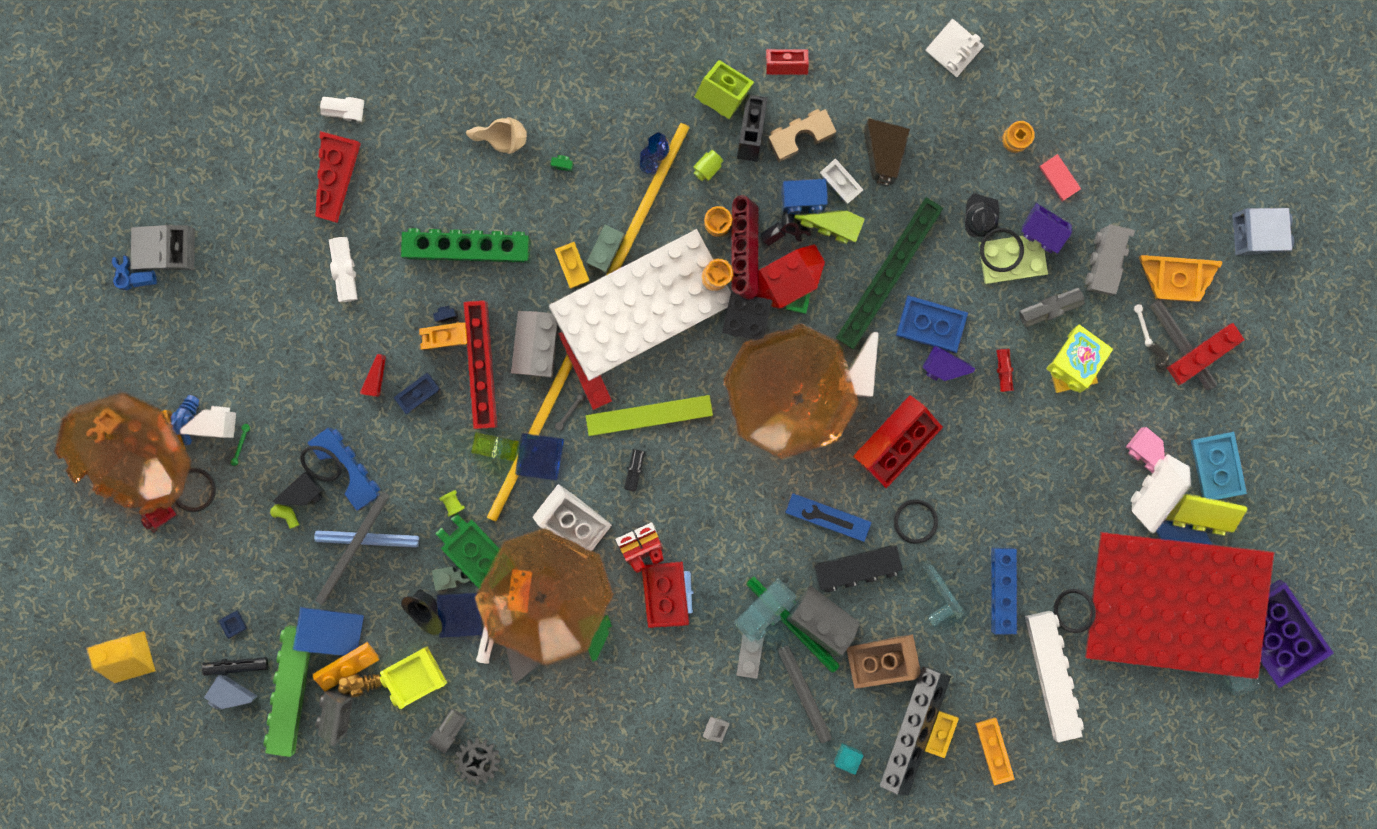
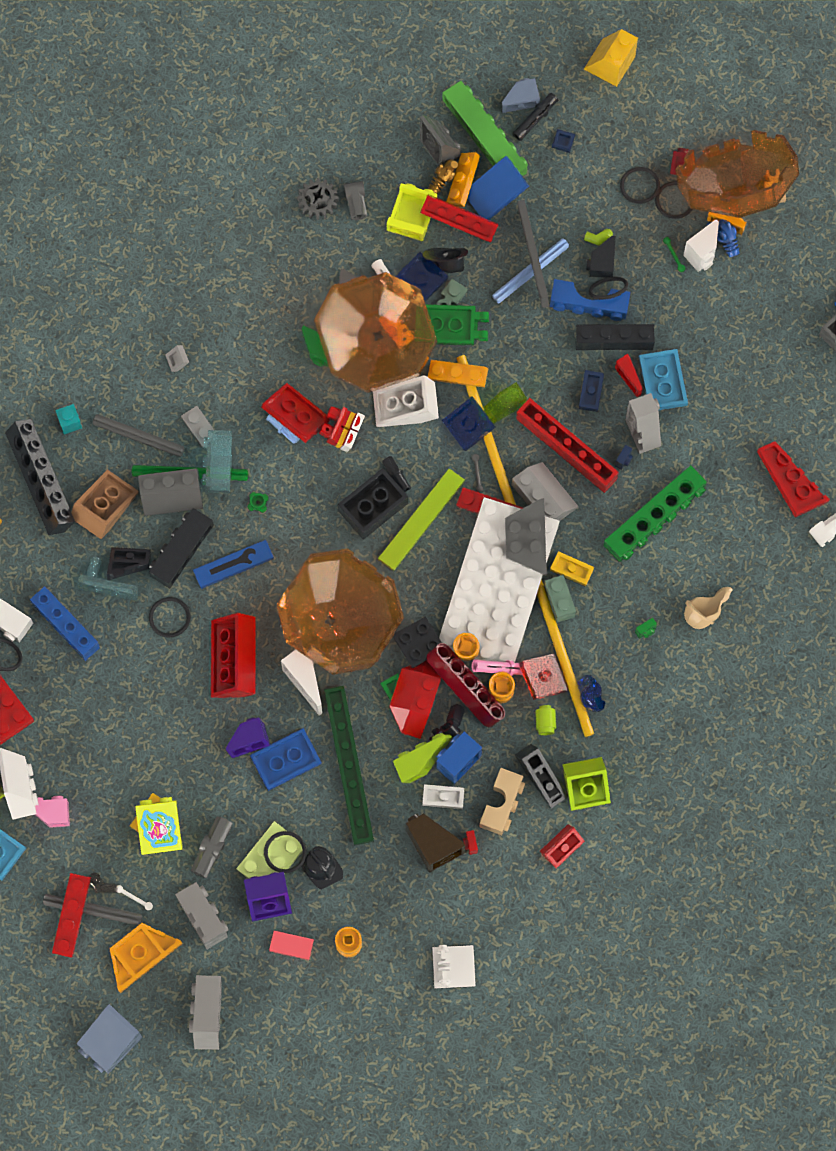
camera: 135 degrees right, 15 degrees down
(195, 542) = (644, 200): none -> black tyre
(342, 269) = (721, 424): white piece -> none
(352, 348) = (664, 378): none -> dark azure plate
(355, 418) = (615, 337): none -> black brick
(381, 635) = (459, 218): none -> red plate
(404, 322) = (644, 423): none -> light grey wedge
(443, 336) = (610, 439): light orange plate -> none
(451, 503) = (497, 342): lime bush -> none
(508, 506) = (458, 373): none -> light orange plate
(588, 314) = (527, 537): none -> dark grey wing
(676, 461) = (373, 503): none -> black brick
(677, 200) = (543, 676): none -> clear red plate
(699, 231) = (481, 666): none -> bright pink pin
(763, 543) = (254, 497): none -> green plate
(855, 126) = (470, 842): none -> red plate
(910, 595) = (127, 561): none -> black wing
(941, 734) = (19, 492): yellow plate -> none
(1005, 370) = (204, 774): red pin -> none
(1171, 185) = (206, 1012): none -> light grey wedge

